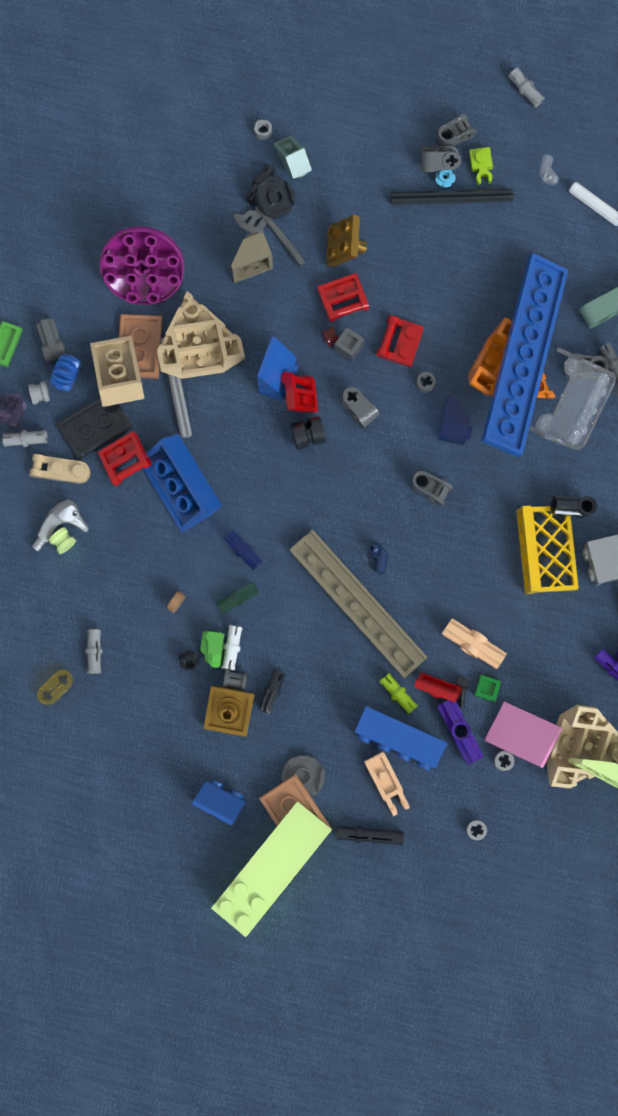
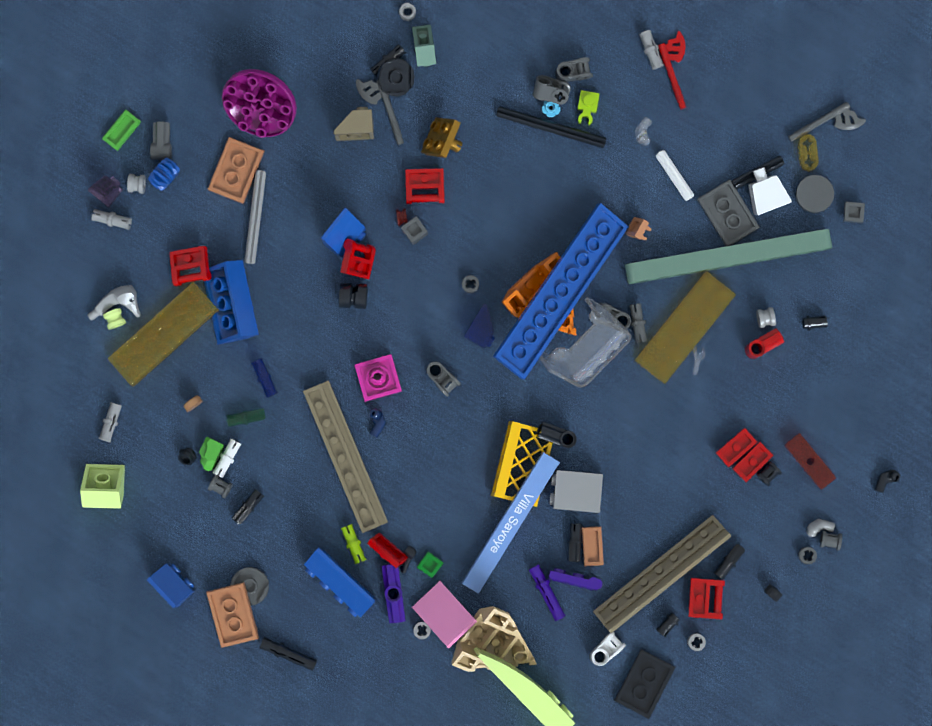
camera: 20 degrees right, 5 degrees up
(51, 683) = (66, 438): clear yellow beam -> none
(60, 469) = (133, 256): tan plate -> none
(93, 427) = (174, 227): black tile -> none
(108, 722) = (102, 486): none -> yellowish green slope
(117, 371) = (208, 187): tan slope -> none
(120, 539) = (163, 334): none -> clear yellow plate
(198, 343) = (284, 186): tan wedge -> none
(229, 710) = (206, 510): pearl gold plate -> none
(271, 869) = (196, 654): yellowish green slope -> none
(361, 409) = (406, 291): dark grey piece -> none
(363, 510) = (378, 378): none -> dark pink plate
(386, 781) = (317, 613): light nougat hinge -> none
(406, 344) = (466, 244): red plate -> none
(474, 643) = (431, 523): light nougat piece -> none
(478, 836) = (378, 673): light grey bush -> none
(539, 84) = (664, 49): none -> red piece
(557, 614) = (510, 522): none -> medium blue tile
(578, 268) = (637, 228): none -> nougat tile

